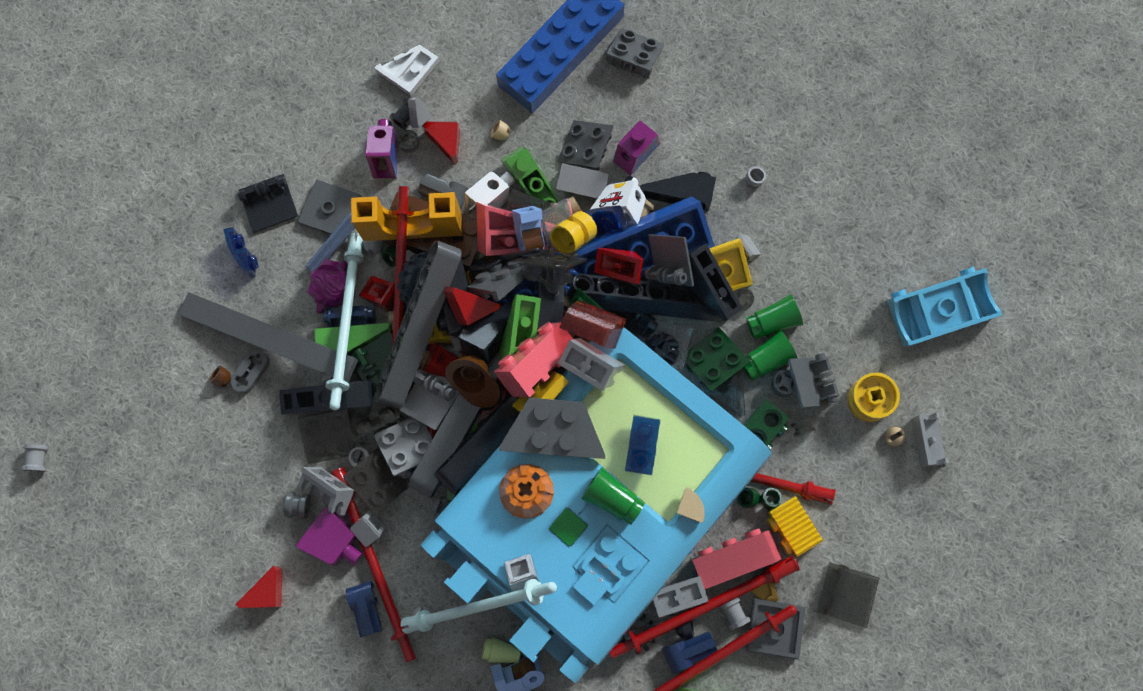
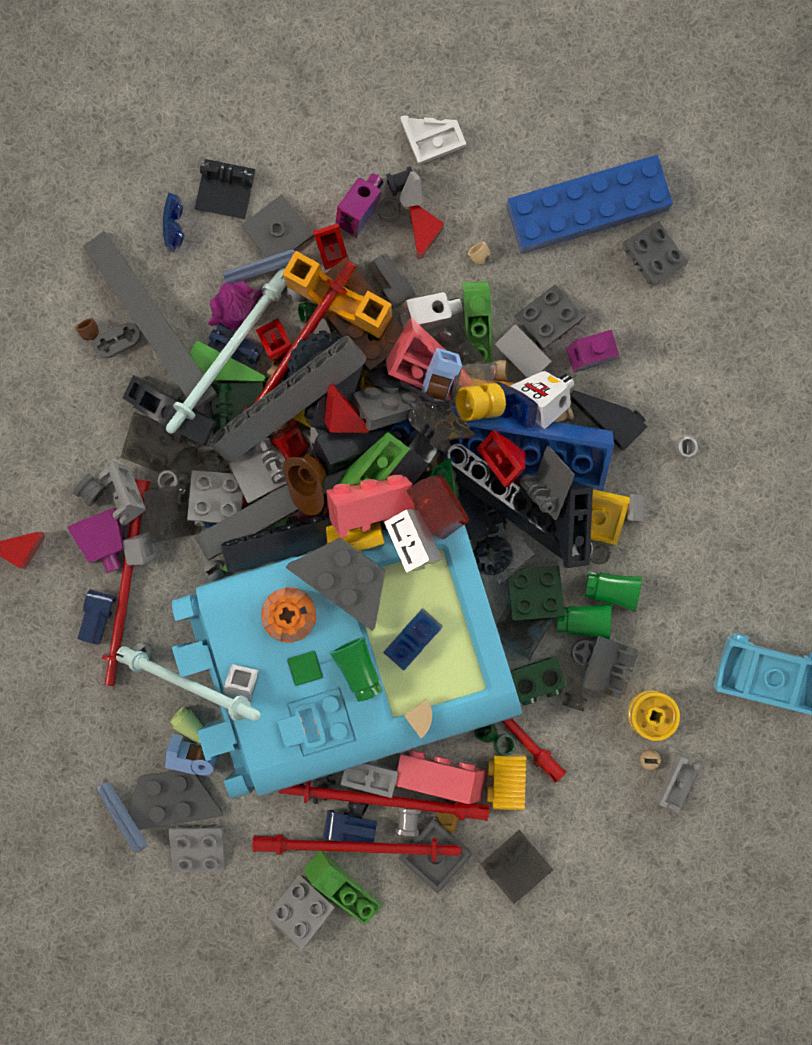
camera: 30 degrees right, 10 degrees up
(376, 185) = (330, 245): none -> red slope

